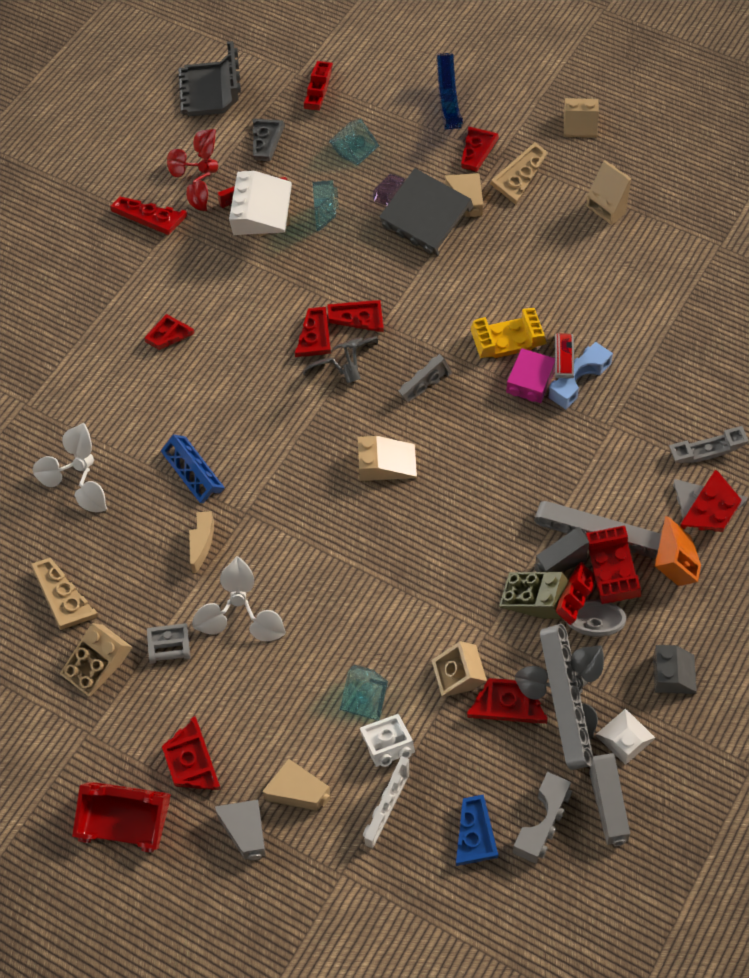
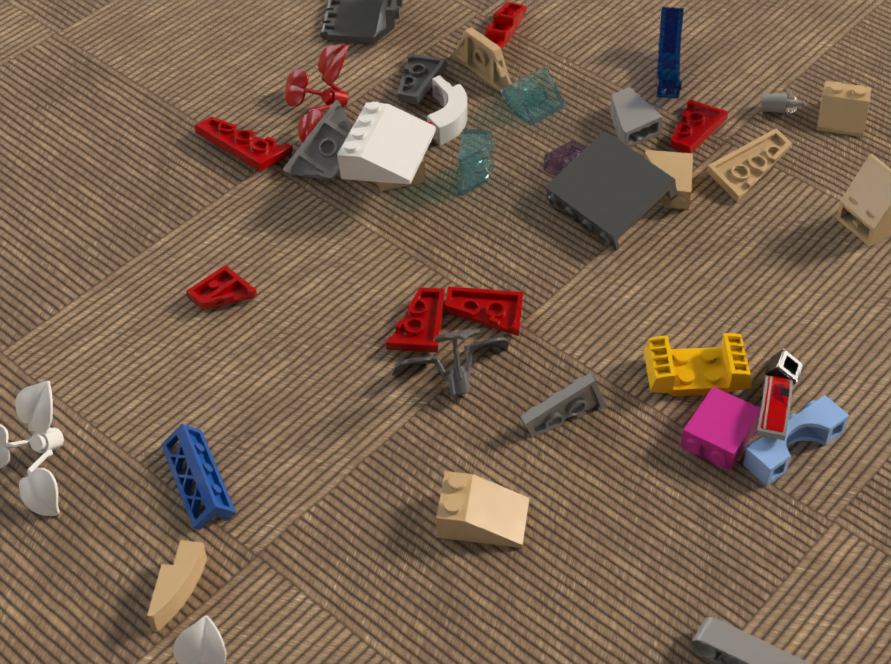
camera: 10 degrees right, 10 degrees down
(213, 209) = (319, 151): none -> light grey wing
(299, 169) = (451, 118): none -> white arch
(311, 116) = (482, 58): none -> tan wing
(430, 149) = (633, 118): none -> light grey slope
(534, 119) = (780, 103): none -> light grey piece
(566, 324) = (784, 366): none -> black slope

